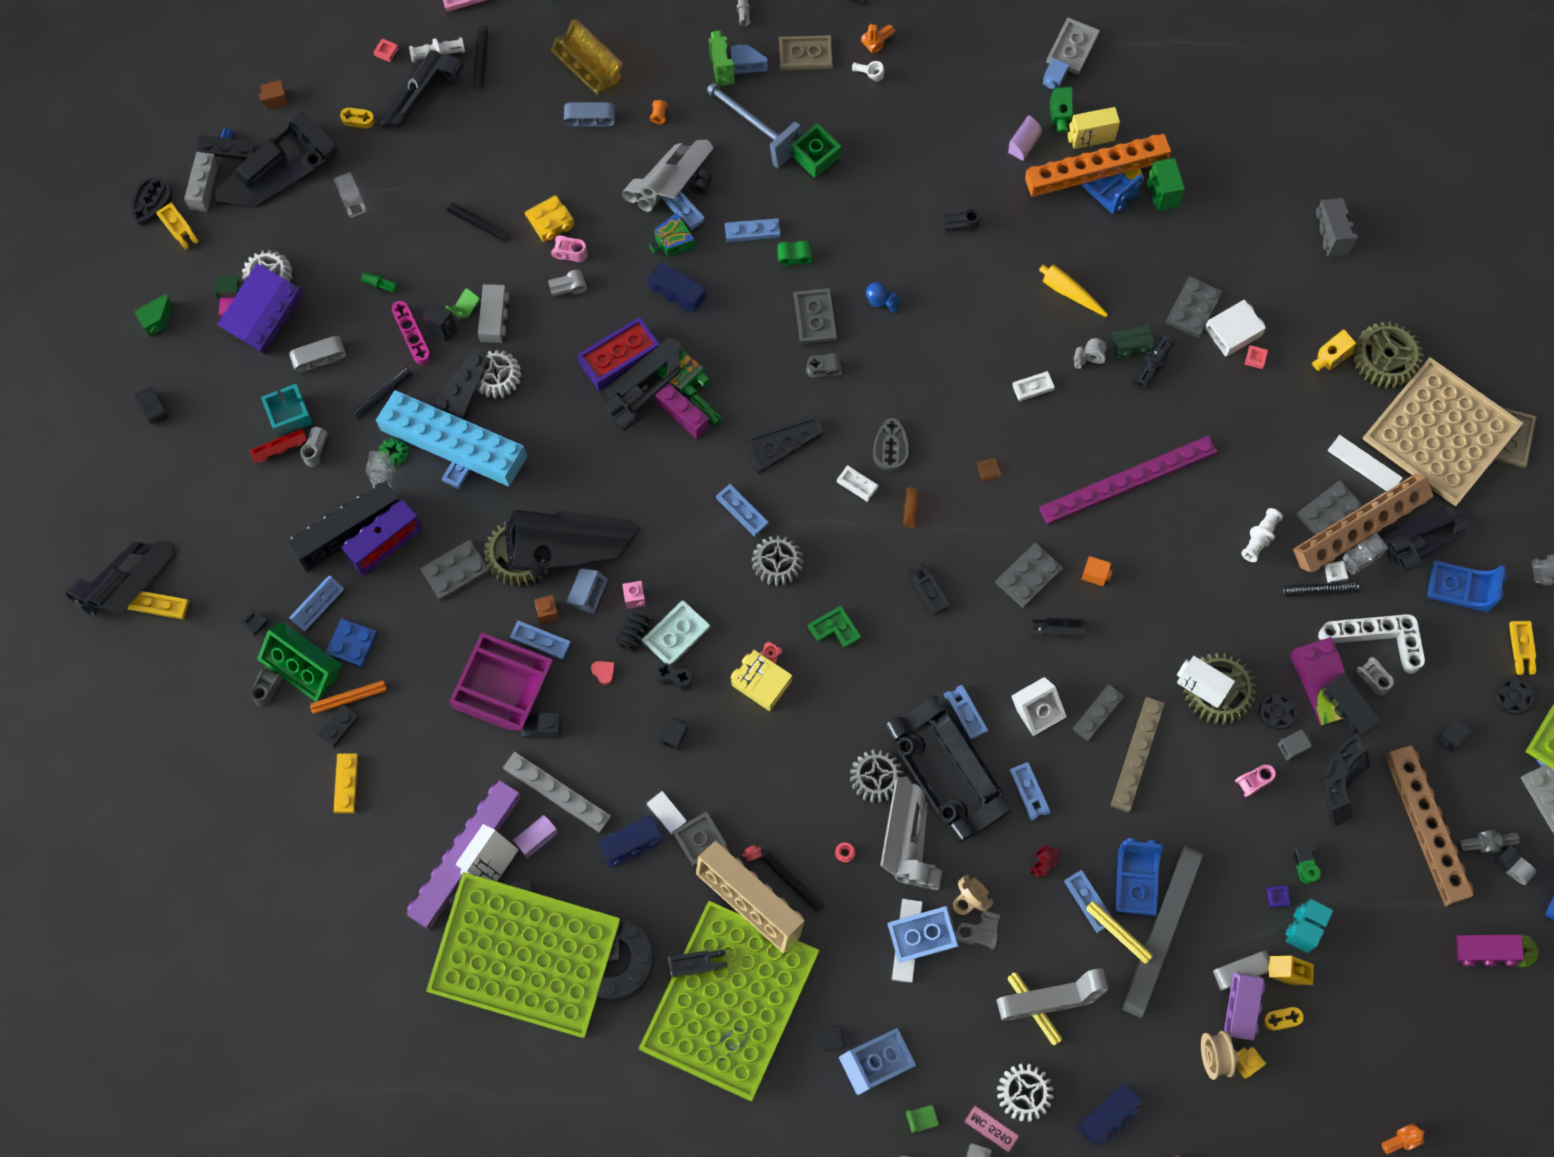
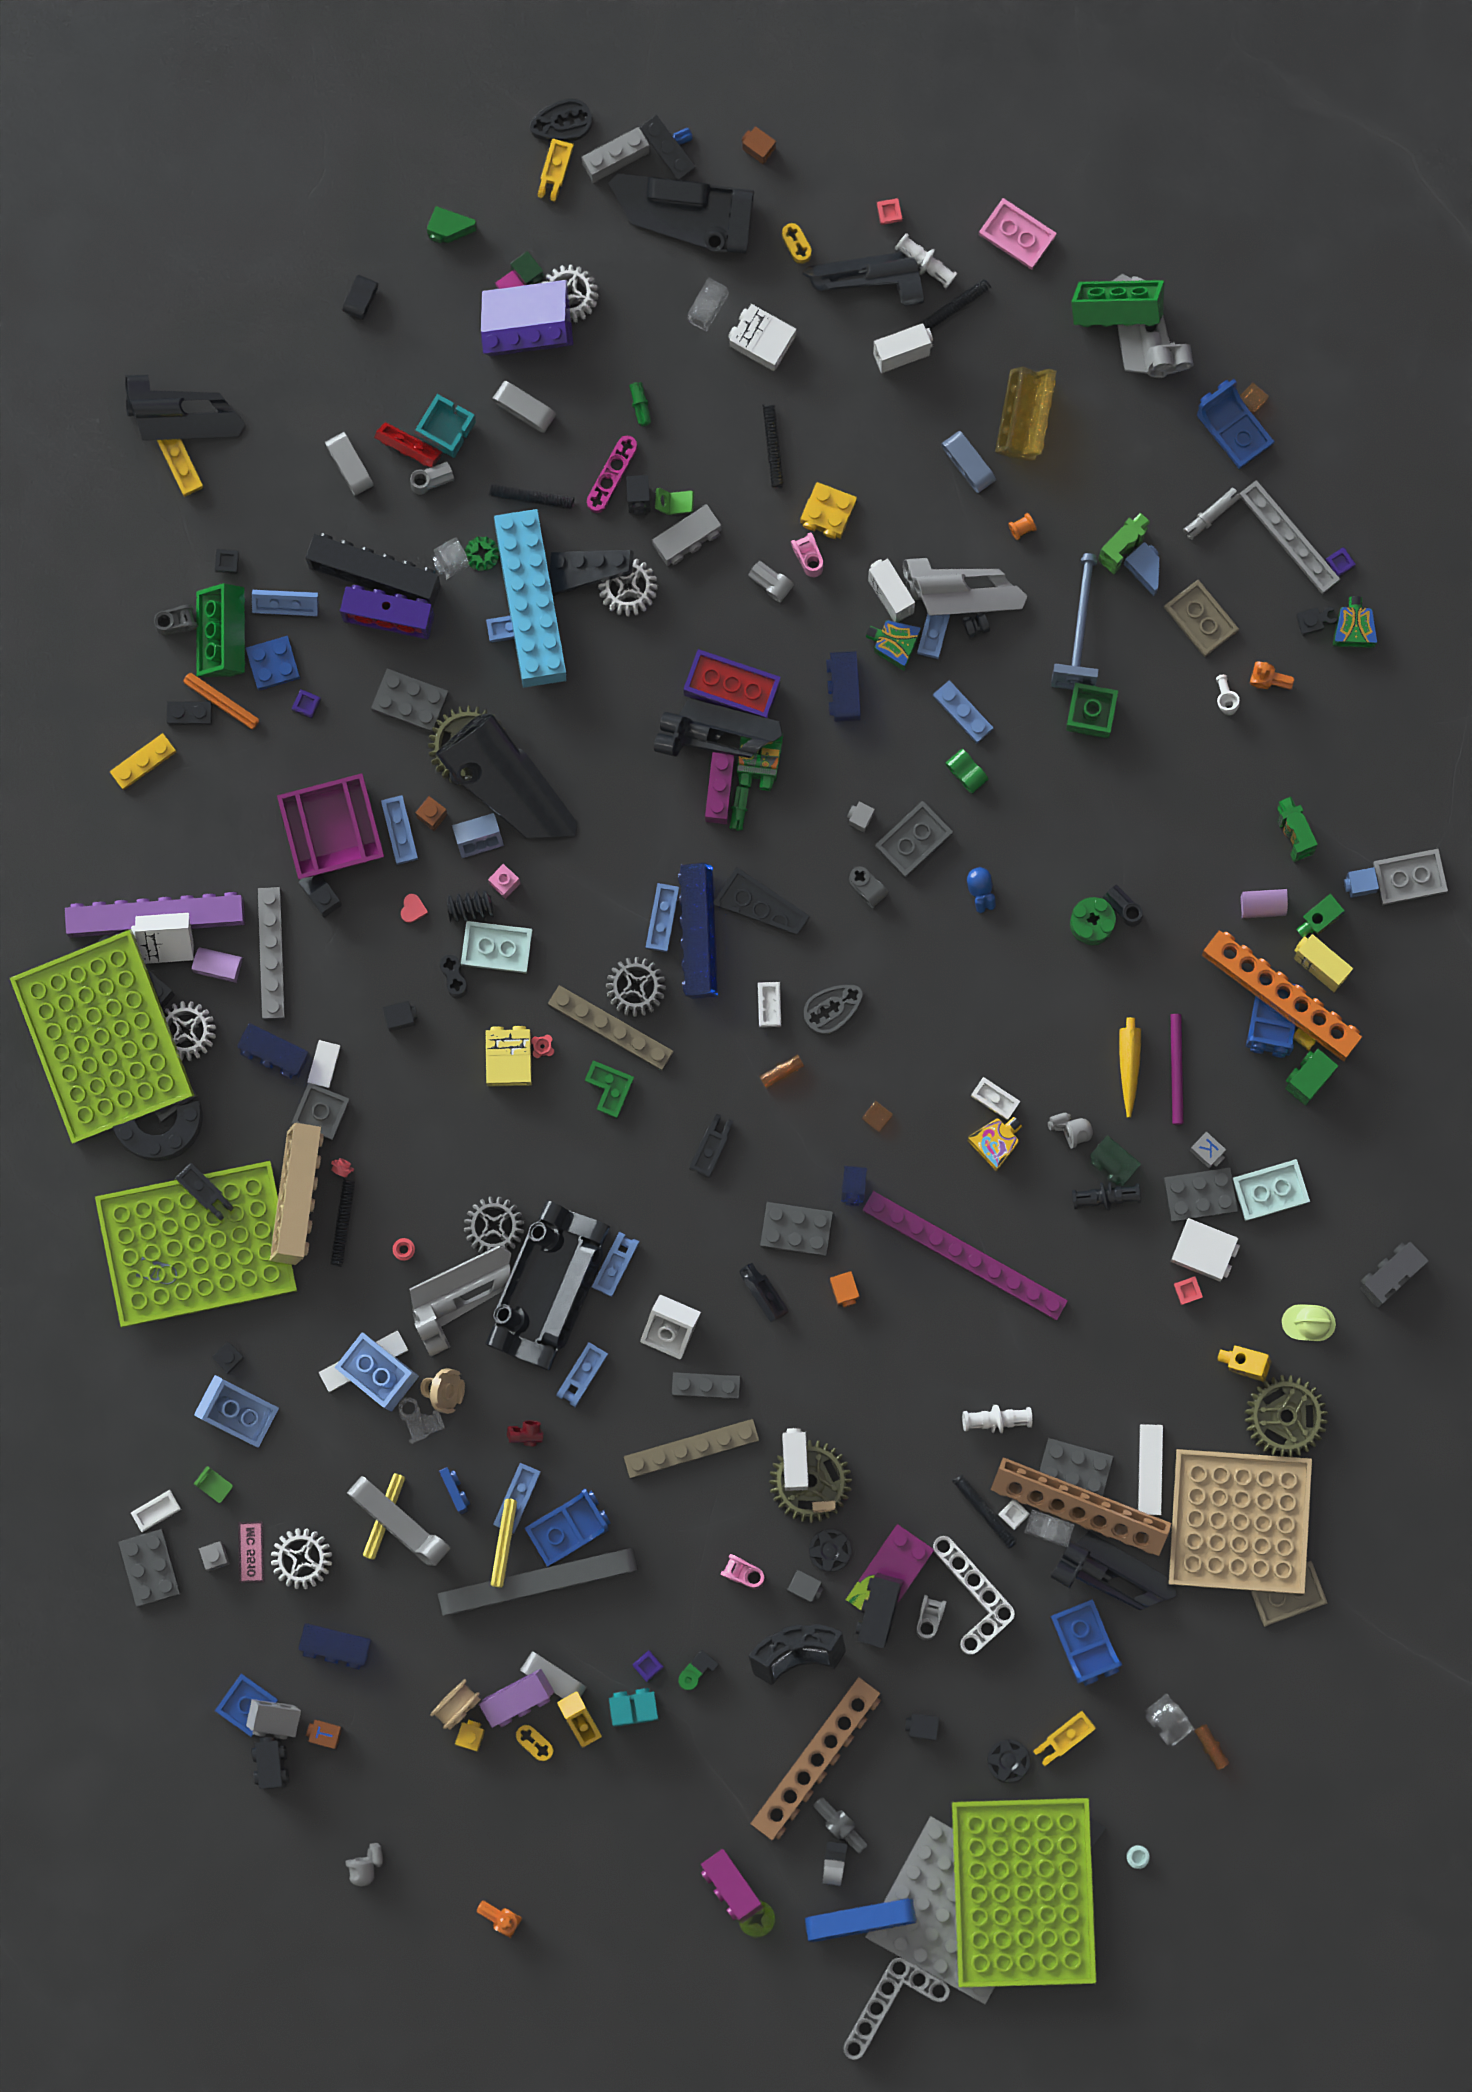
camera: 55 degrees right, 10 degrees up
(257, 492) = (349, 463): none -> light grey beam
(399, 641) = (306, 703): none -> dark purple tile
(400, 178) = (762, 337): none -> white brick
(481, 98) = (902, 347): none -> white brick
(574, 891) = (193, 1023): none -> white gear
(636, 212) = (891, 590): none -> white brick
(770, 491) = (698, 930): none -> clear blue brick
(773, 337) = (860, 816): none -> light grey plate
(792, 598) = (610, 1028): none -> dark tan plate
(958, 244) = (1100, 911): none -> green brick
(991, 85) = (1296, 829): none -> green hips
(1031, 510) = (853, 1185): none -> clear blue brick
(1048, 939) = (459, 1498): none -> blue plate
(1064, 405) = (996, 1141): none -> torso
(1097, 264) = (1176, 1069): none -> magenta piece
(1168, 280) = (1208, 1150): none -> light grey brick
(1223, 262) = (1271, 1190): none -> light aqua plate
(1250, 687) = (825, 1506): none -> tan tile
(1329, 300) = (1308, 1322): none -> yellowish green piece

